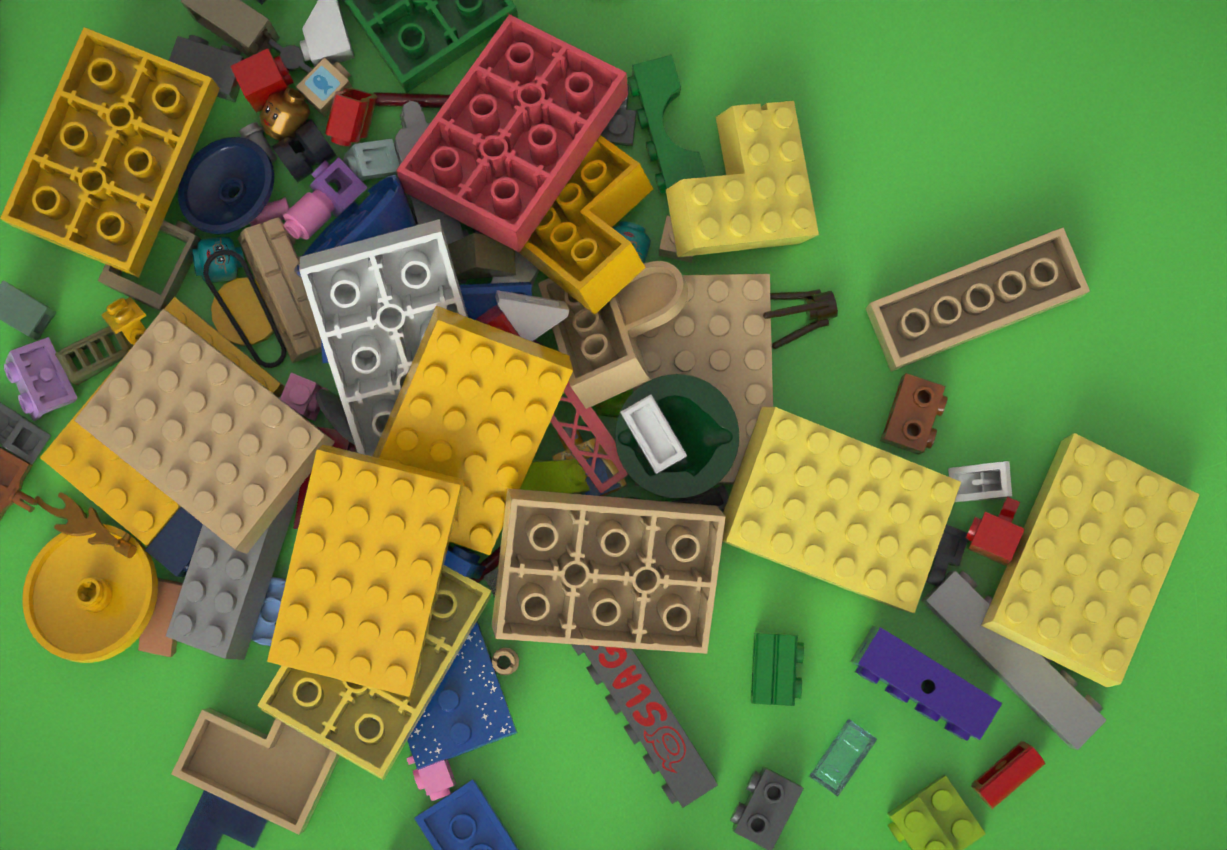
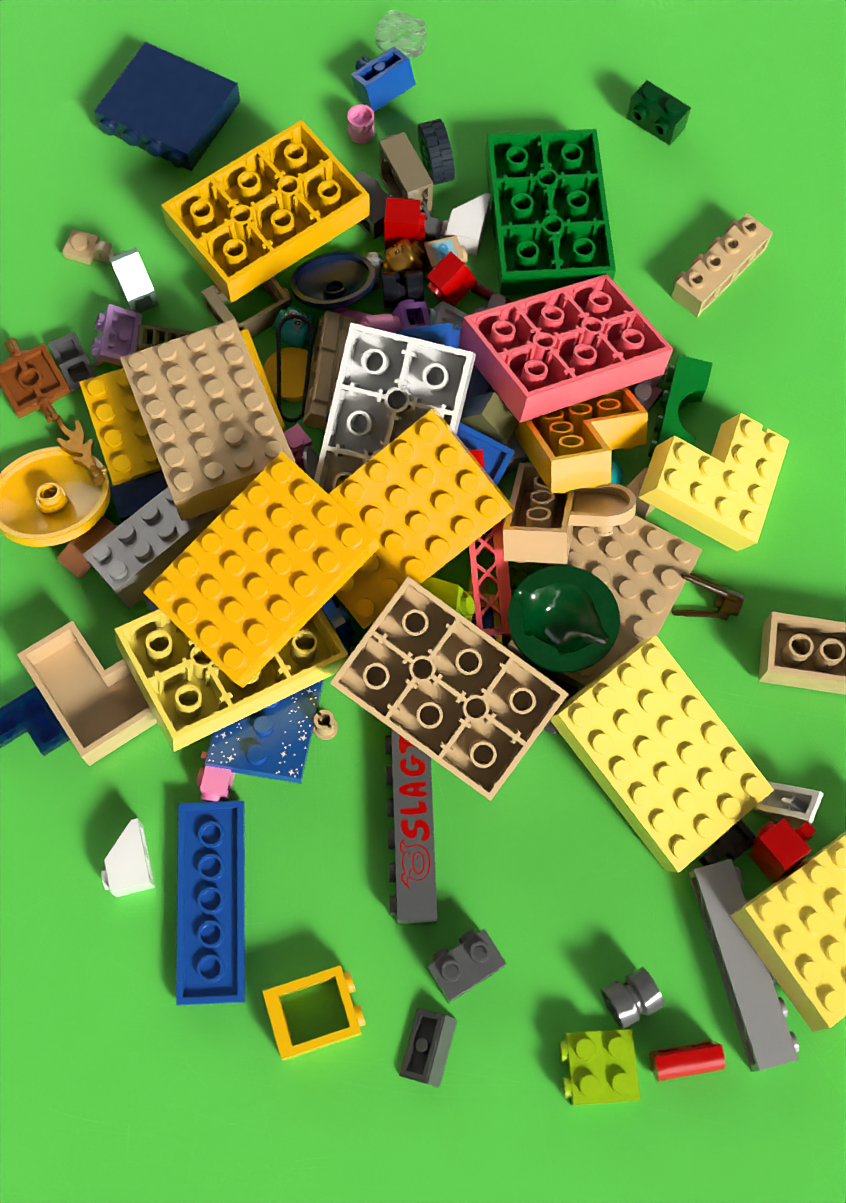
camera: 25 degrees right, 15 degrees down
(125, 317) = (203, 320): yellow hinge -> none
(531, 314) = (502, 468): white slope -> none
(653, 434) = (546, 604): white tile -> none
(775, 669) = (537, 855): green brick -> none
(843, 757) = (553, 962): clear light blue tile -> none
(914, 414) = (761, 719): dark orange brick -> none
(931, 749) = (633, 997): none -> dark grey wheel
(945, 693) = (657, 935): dark purple brick -> none

